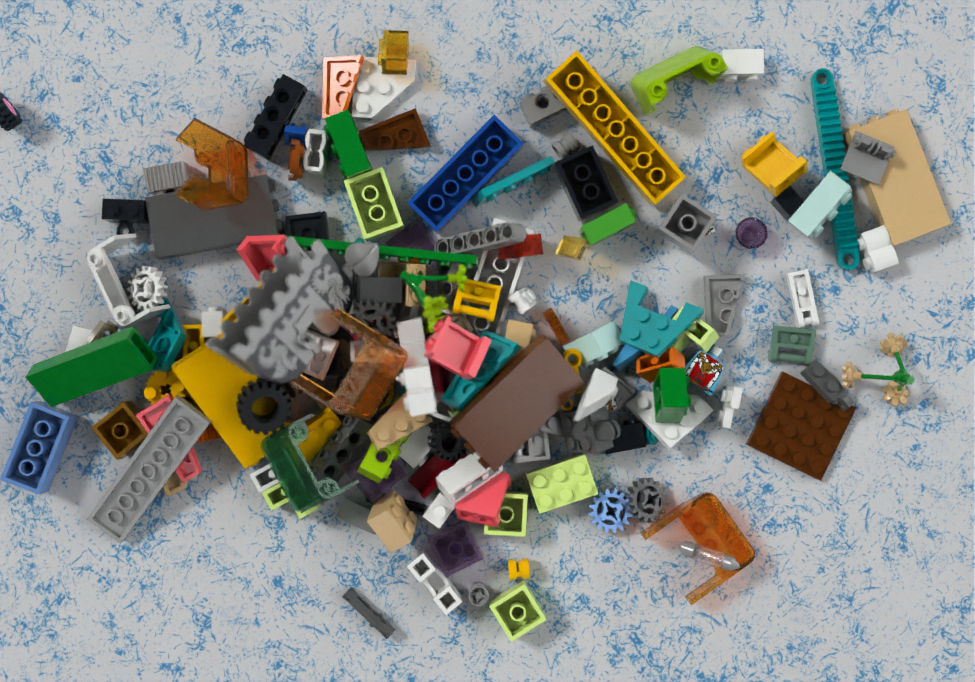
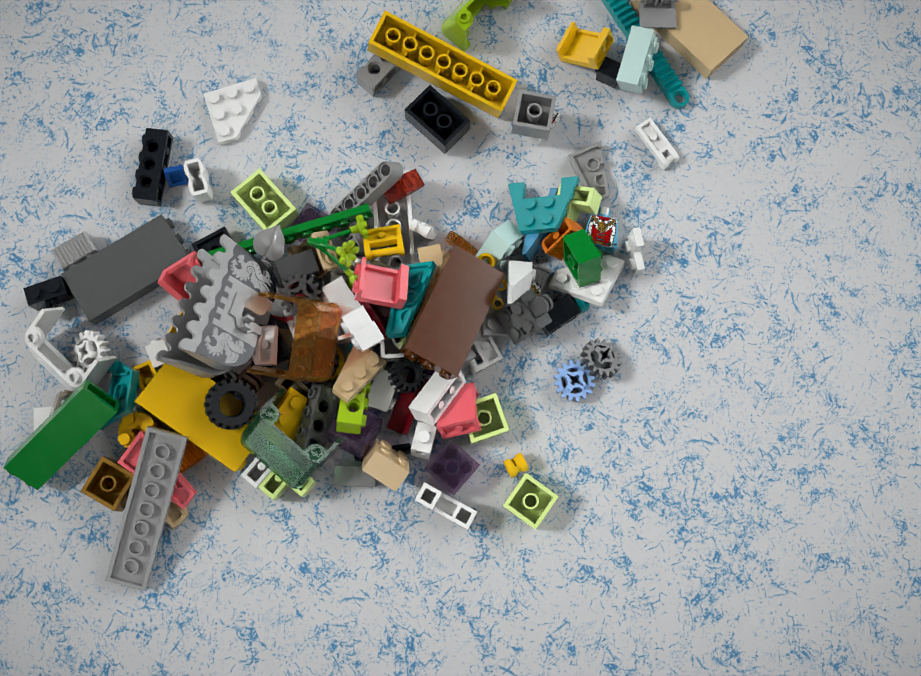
camera: 25 degrees left, 10 degrees down
(39, 447) = (38, 531): medium blue brick -> none
(226, 166) = (116, 221): clear orange windscreen -> none
(295, 154) = (180, 189): dark orange plate -> none
(339, 82) = (197, 120): wing -> none
(347, 145) = (221, 161): green brick -> none
(373, 617) = (395, 560): dark grey pin -> none
(394, 52) = (234, 76): clear yellow brick -> none
(398, 132) = (261, 141): reddish brown wing -> none
(465, 174) = (333, 150): blue brick -> none
(476, 597) = (489, 502): light grey wheel -> none
(509, 183) = (374, 141): teal wing -> none
(561, 482) = (521, 373): yellowish green brick -> none
(567, 145) = (409, 95): light grey wheel -> none
(572, 247) = (447, 173): clear yellow tile -> none
(608, 225) = (469, 144): bright green brick -> none
(708, 556) = (675, 383): piece -> none
(713, 528) = (672, 364): clear orange windscreen -> none
(751, 233) = (591, 106): clear purple hair -> none
(792, 338) = (662, 177): sand green plate -> none
(799, 426) = (703, 246): reddish brown plate -> none
(827, 385) = (709, 203): dark grey hinge -> none
(877, 249) = (699, 81): white brick -> none
(895, 392) = (747, 153): tan plant -> none

